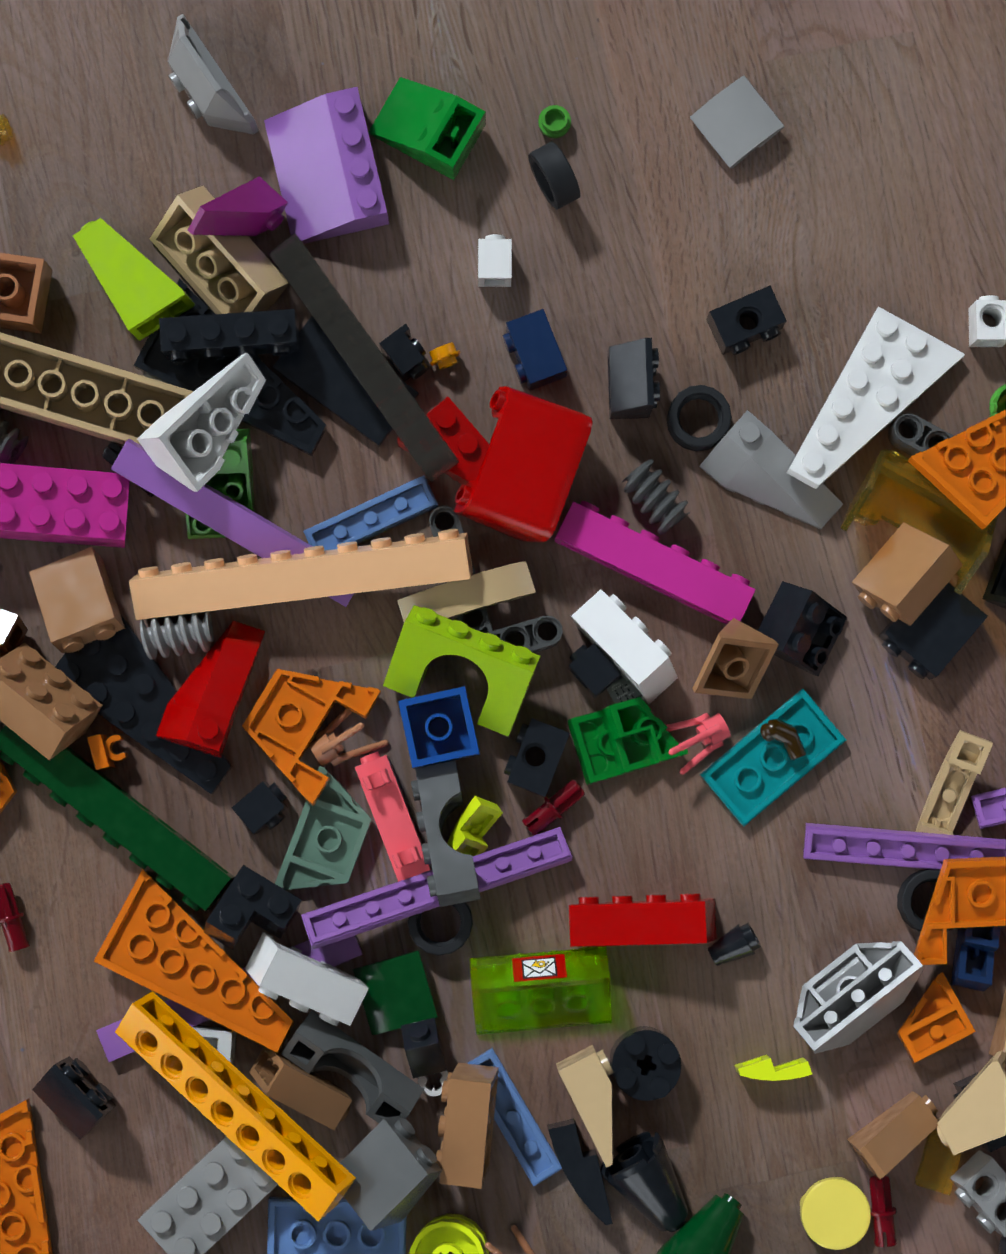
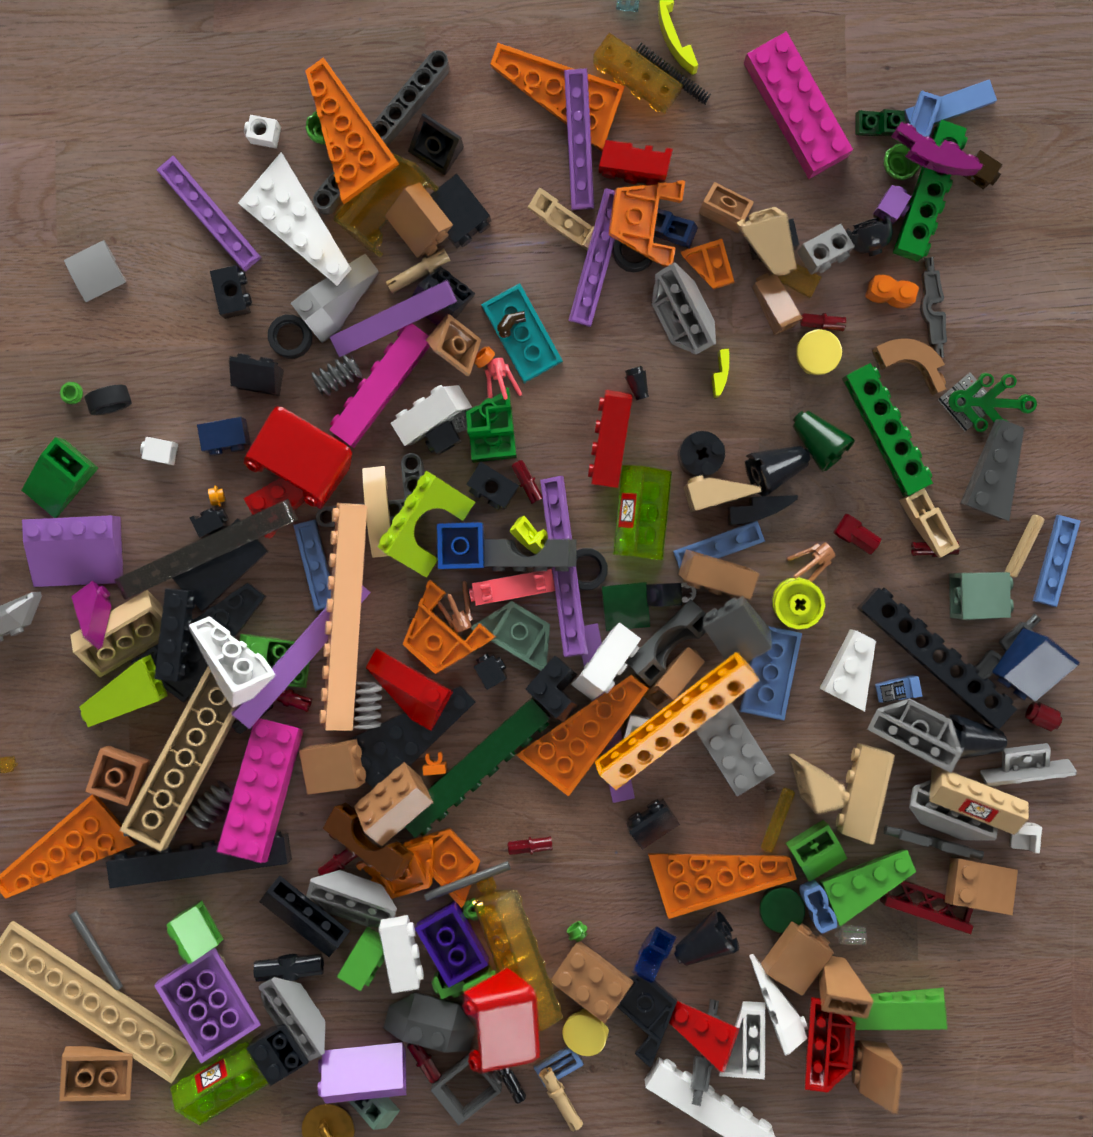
camera: 75 degrees left, 5 degrees up
(166, 526) = (293, 699): none -> dark red pin
(726, 708) = (484, 356): none -> orange tile
(755, 564) = (393, 318): none -> medium lavender tile
(834, 588) = (419, 270): none -> tan pin
(853, 268) = (209, 213): none -> medium lavender tile

